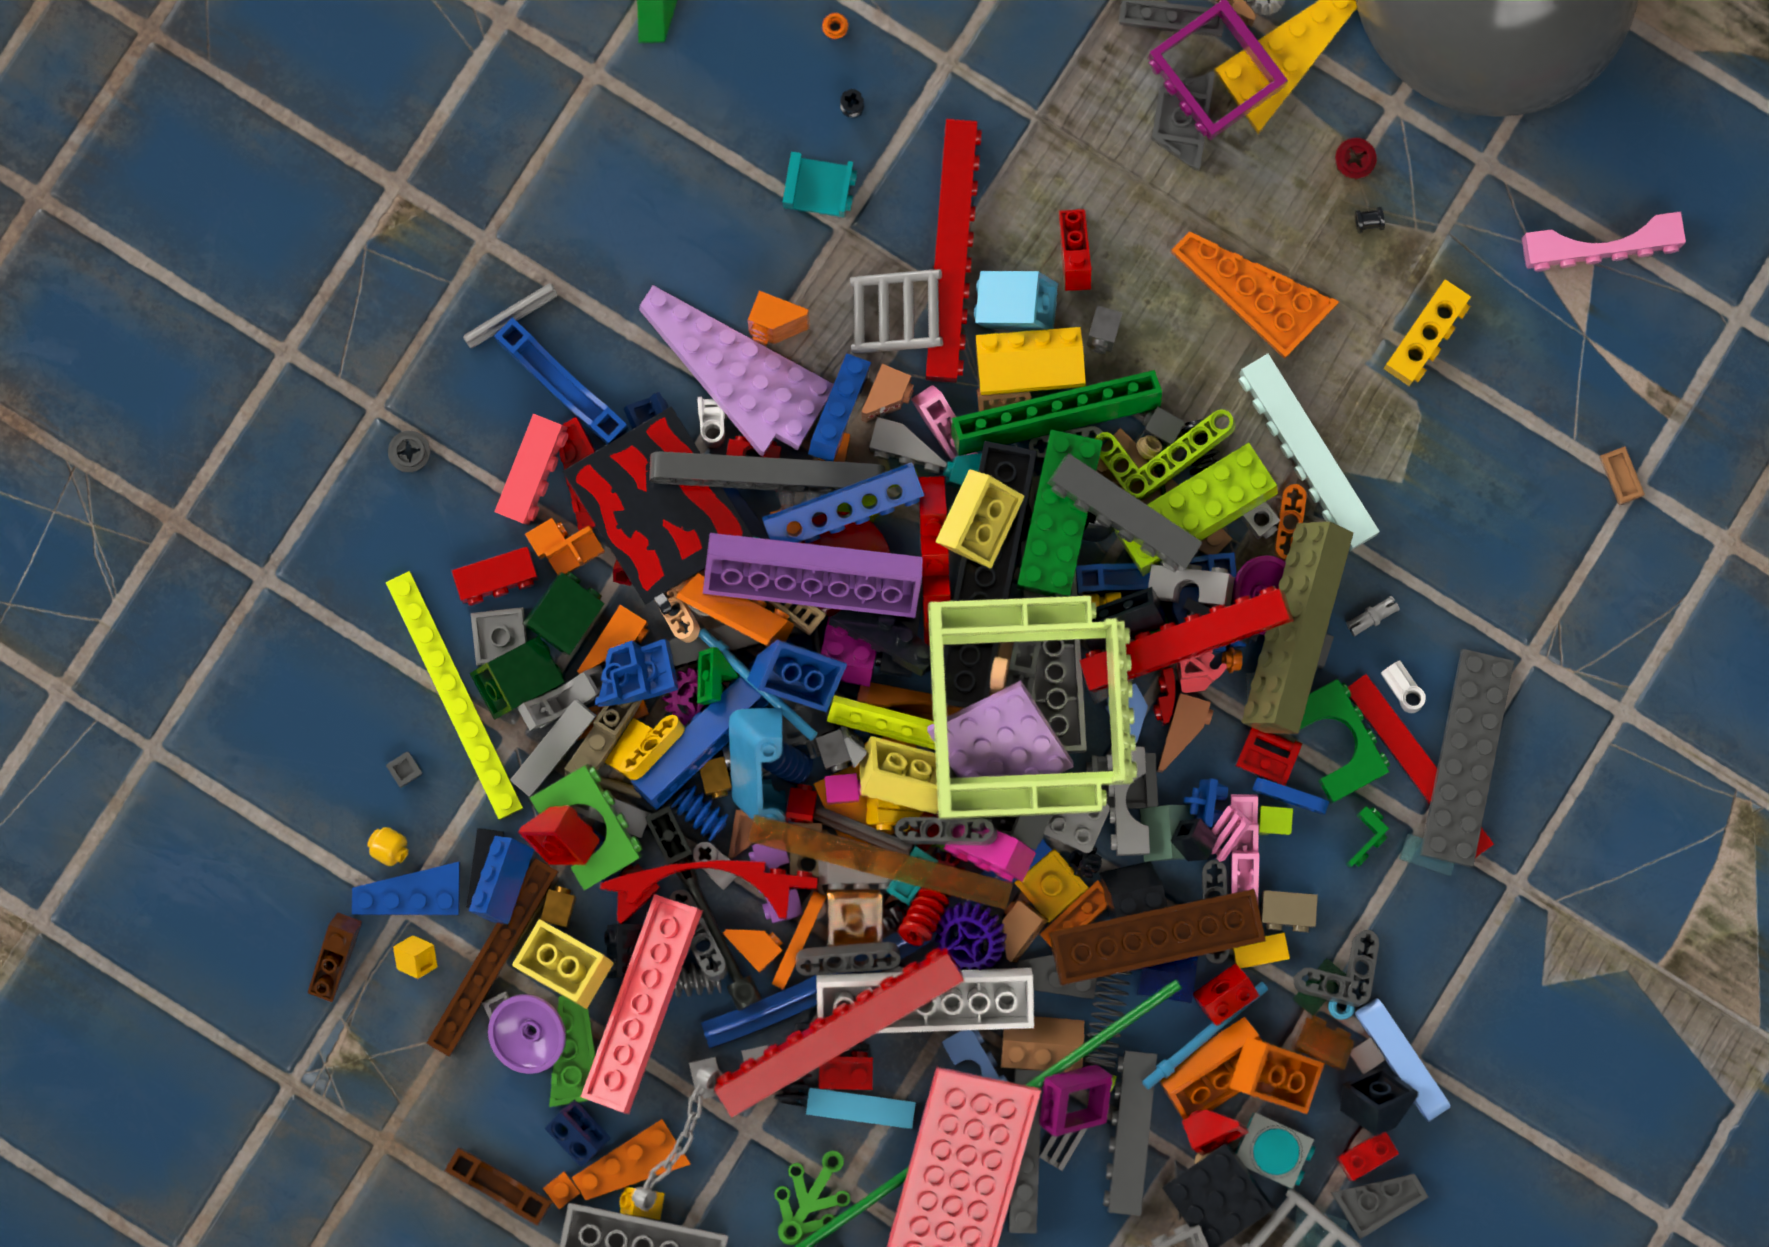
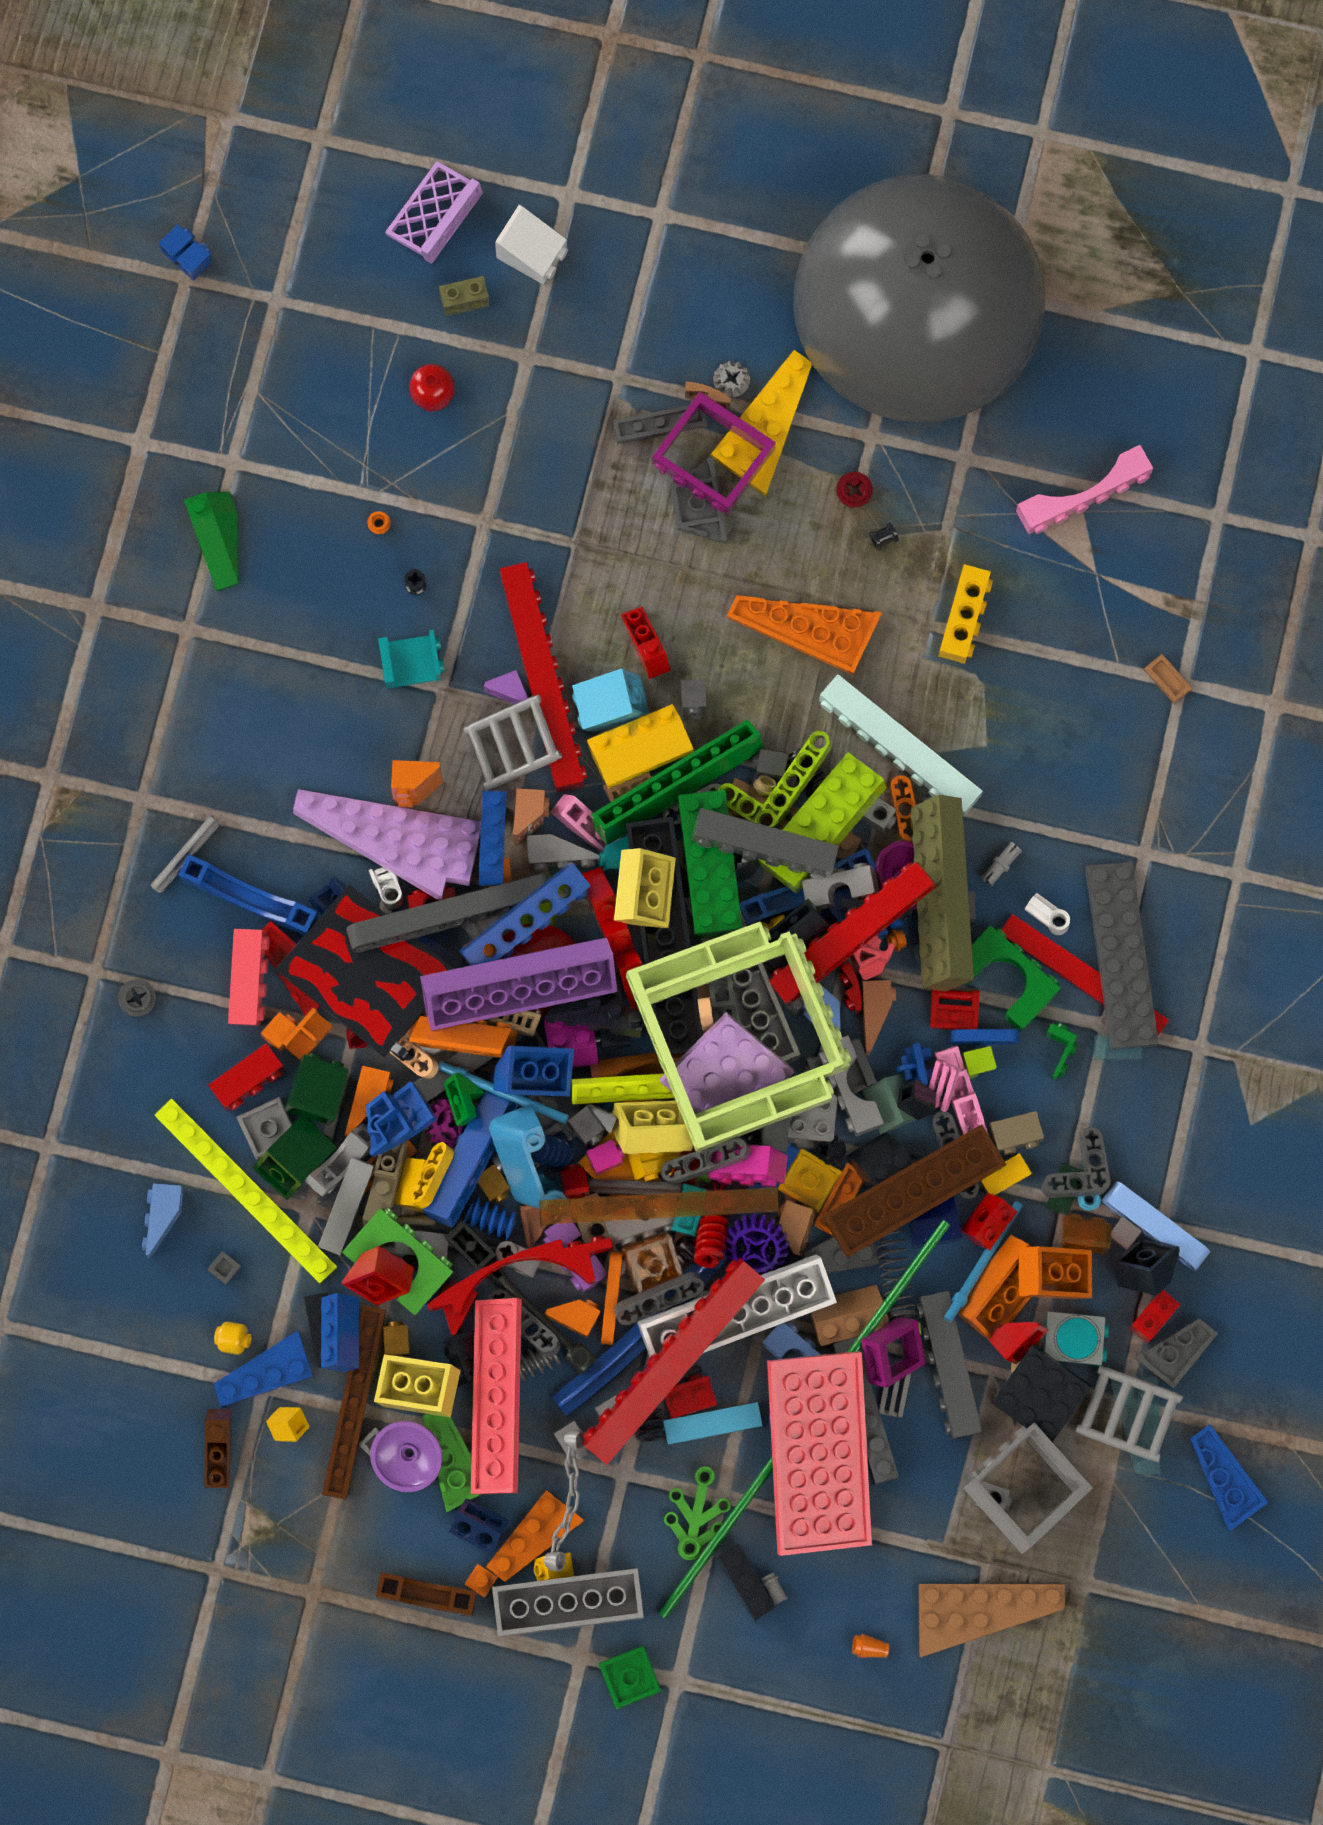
camera: 20 degrees left, 5 degrees down
(361, 688) = (164, 1211): none -> medium blue slope
(911, 250) = (506, 687): none -> medium lavender slope

